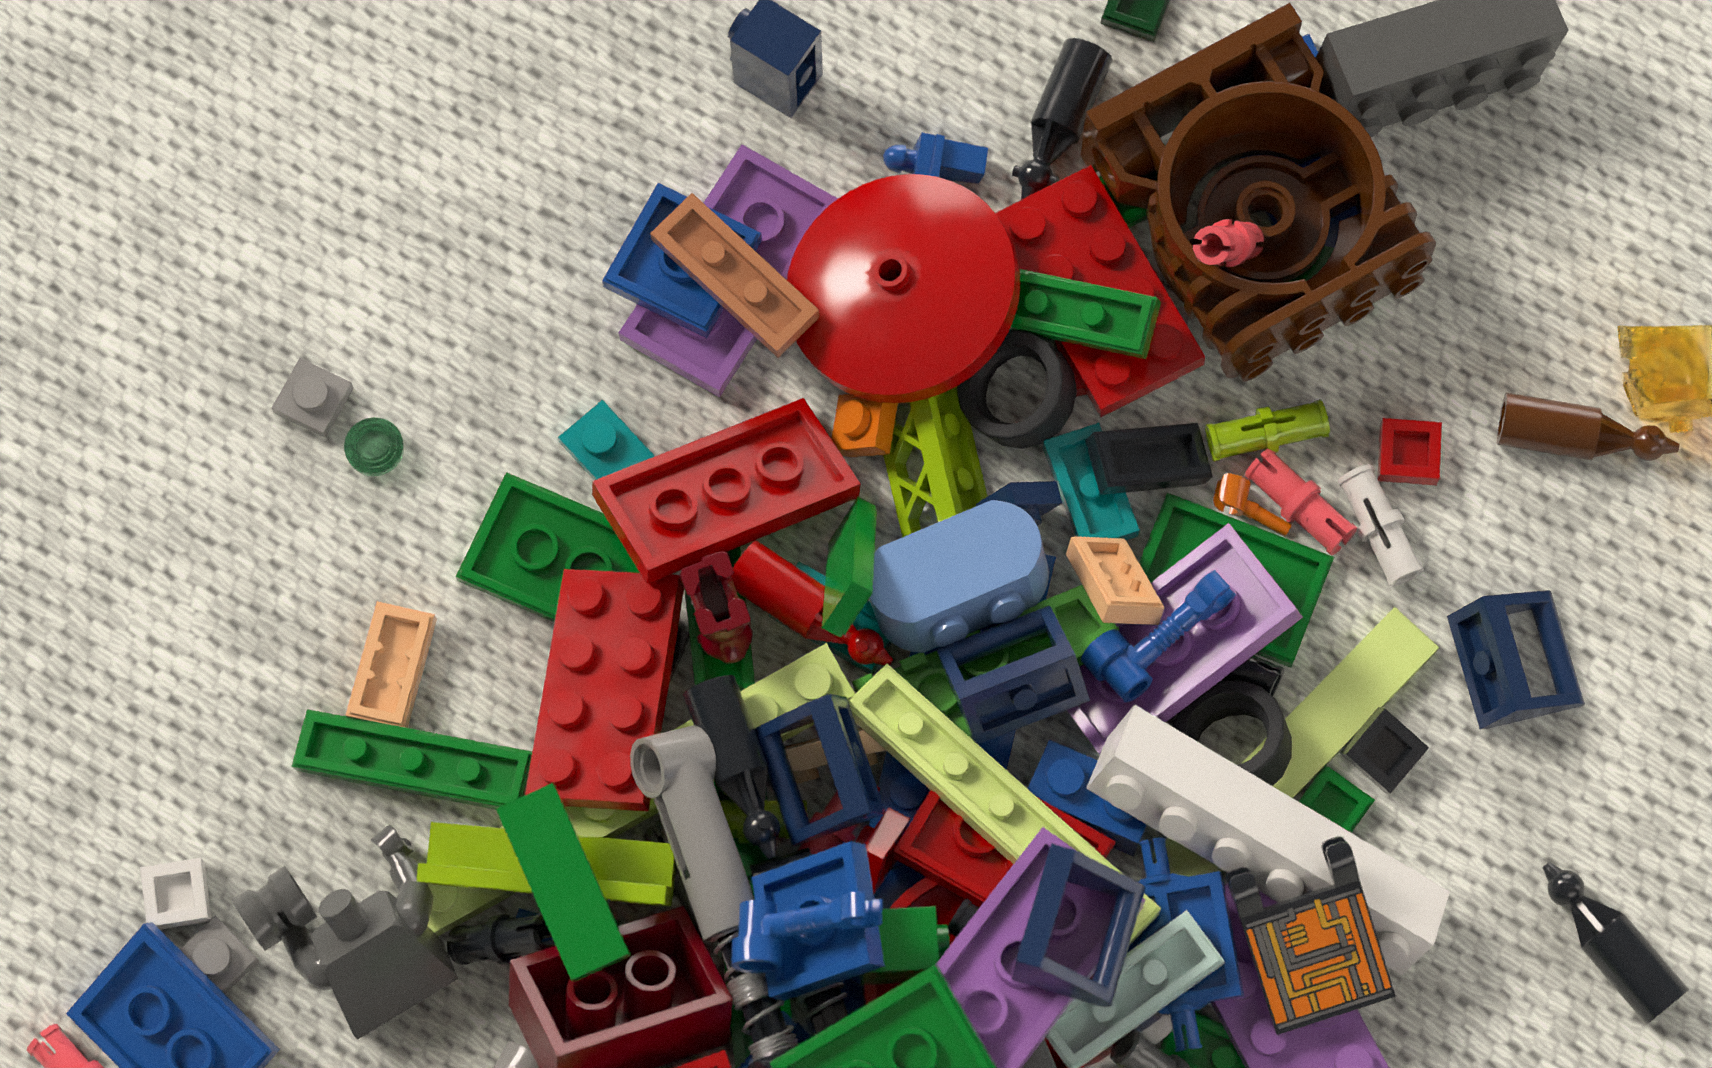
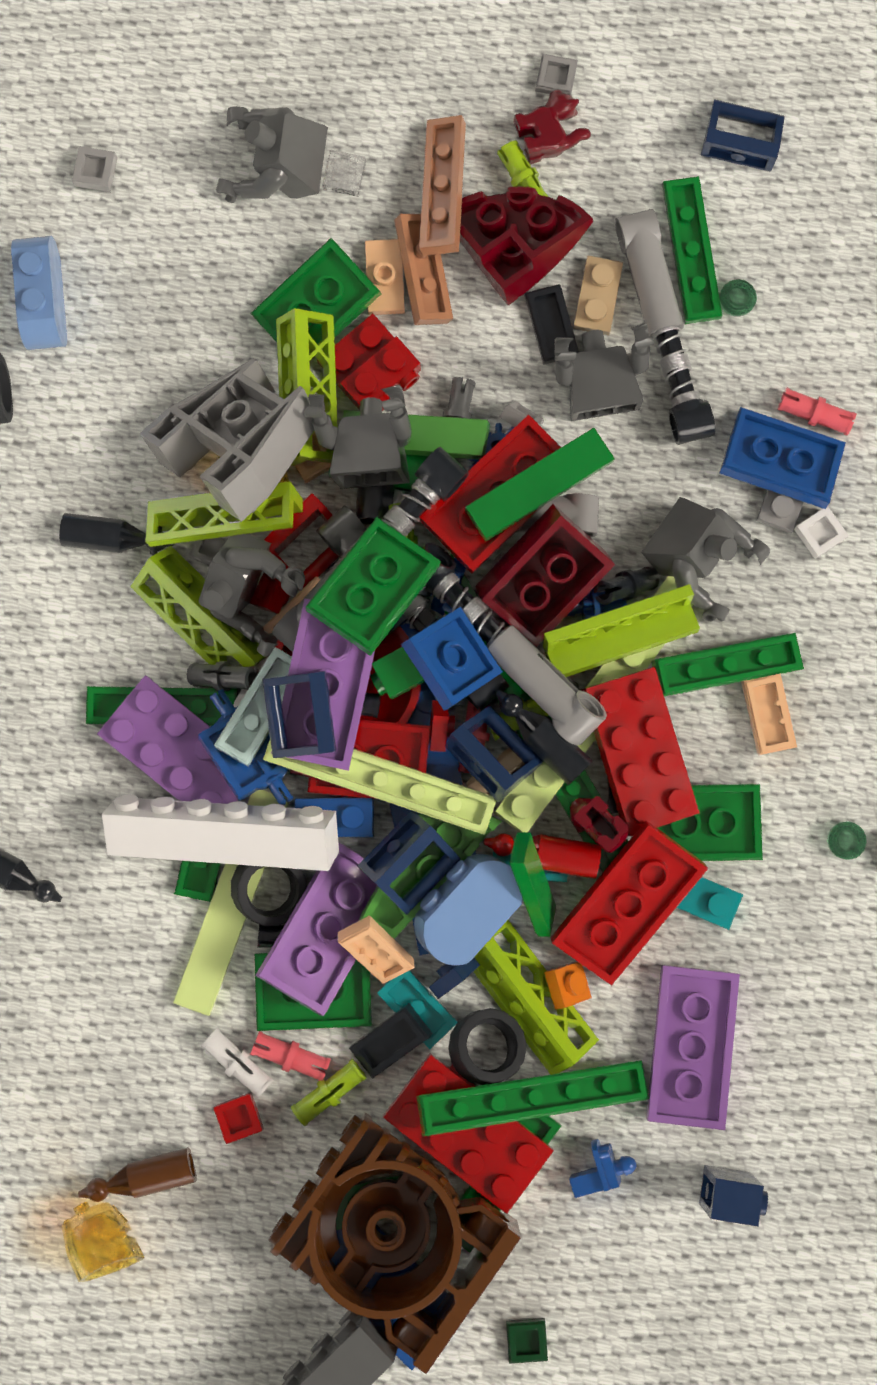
camera: 155 degrees right, 10 degrees up
(274, 908) = (761, 542): dark grey wheel -> none
(563, 882) = (606, 617): green tile -> none
(654, 280) = (724, 1036): blue tile -> none
(735, 275) = (687, 1036): nougat plate -> none
(764, 930) = (478, 638): blue brick -> none
(906, 287) = (551, 1071): red dish -> none
(1062, 110) = (540, 1244): black wheel -> none
(1124, 666) = (347, 900): blue brick -> none
(1228, 243) = (397, 1190): coral pin -> none
(1234, 491) = (332, 1042): orange hand -> none
(1314, 950) = (166, 779): flag -> none
(1384, 750) = (179, 925): black plate -> none
(1494, 664) = (136, 1006): dark blue tile -> none

